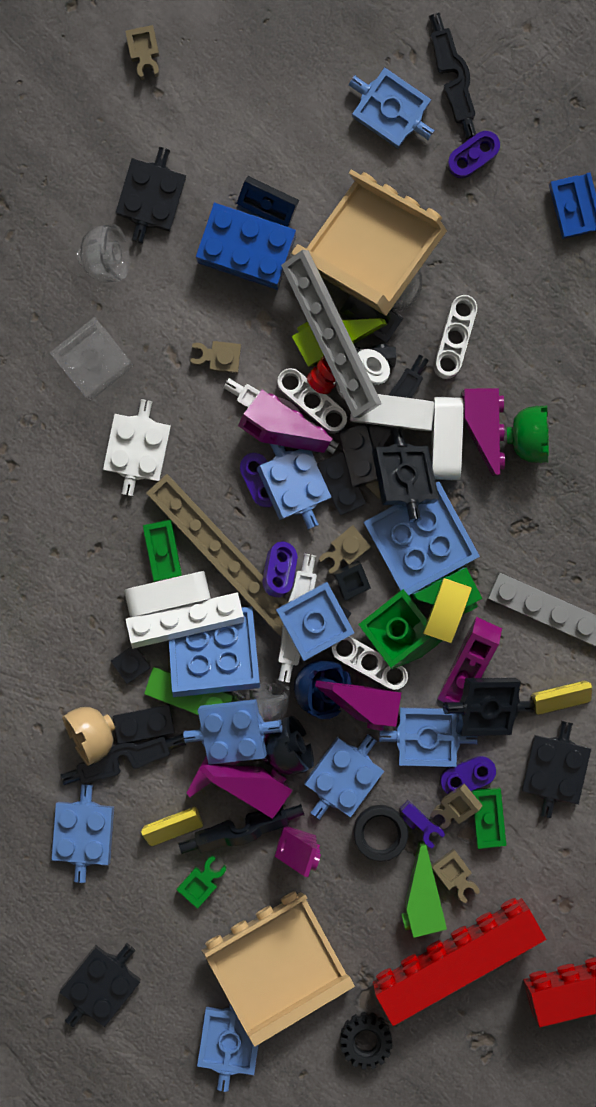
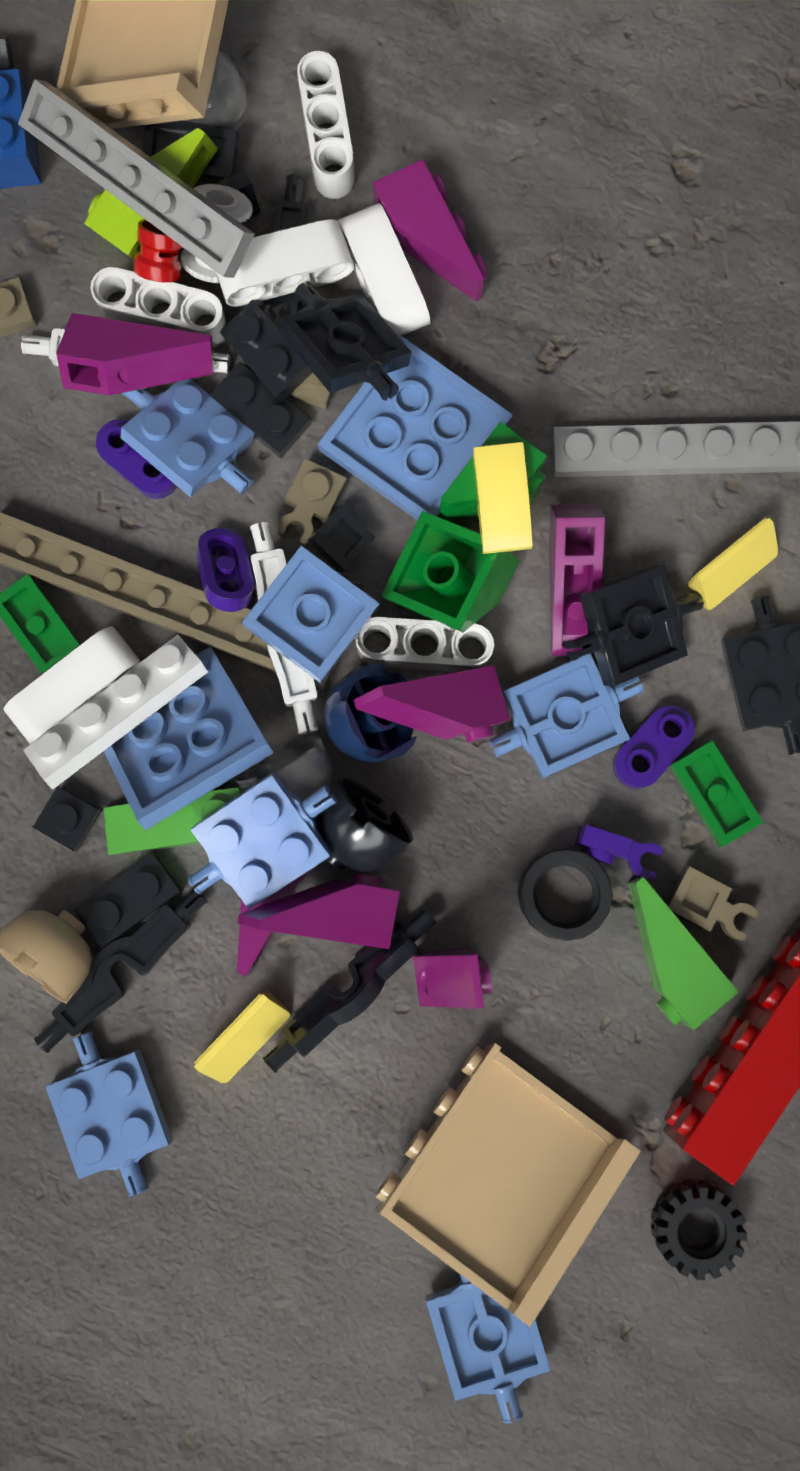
camera: 20 degrees left, 5 degrees down
(100, 985) = (244, 1343): black plate -> none
(199, 883) = (325, 1106): green plate -> none
(343, 777) = (468, 836): medium blue plate -> none
(457, 805) = (661, 794): dark tan plate -> none
(530, 434) = (502, 204): green cylinder -> none

